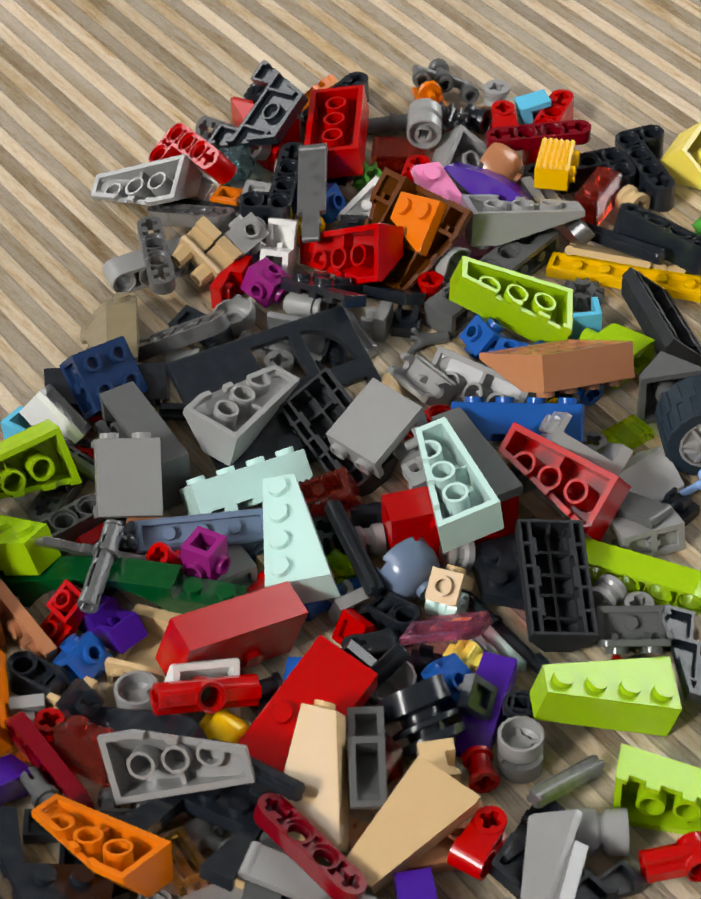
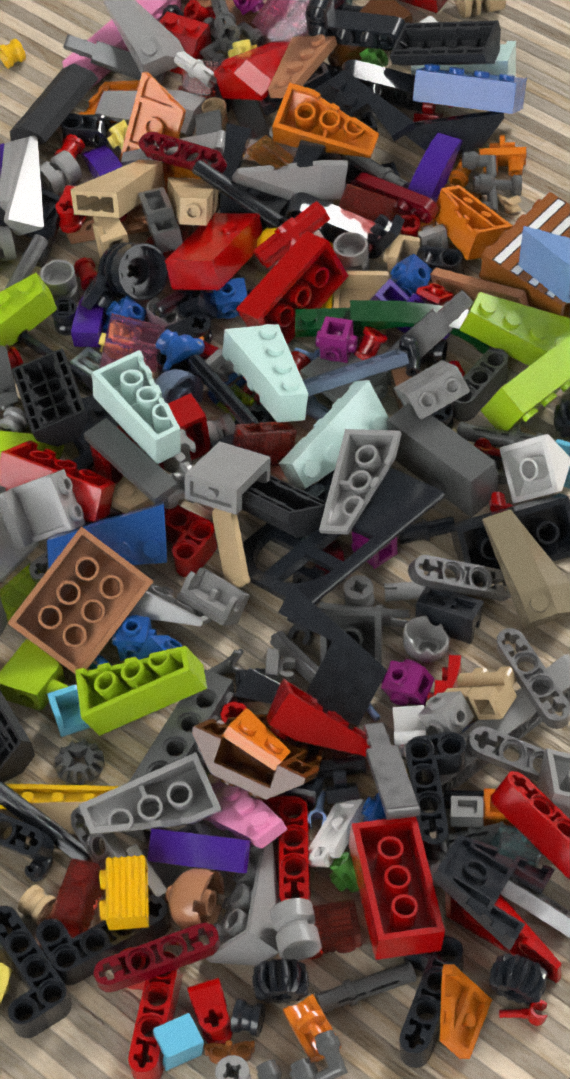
camera: 170 degrees right, 10 degrees up
(99, 371) = (507, 489): dark blue bracket -> none
(104, 554) = (413, 309): dark grey pin -> none
(390, 601) = (178, 347): none -> blue animal

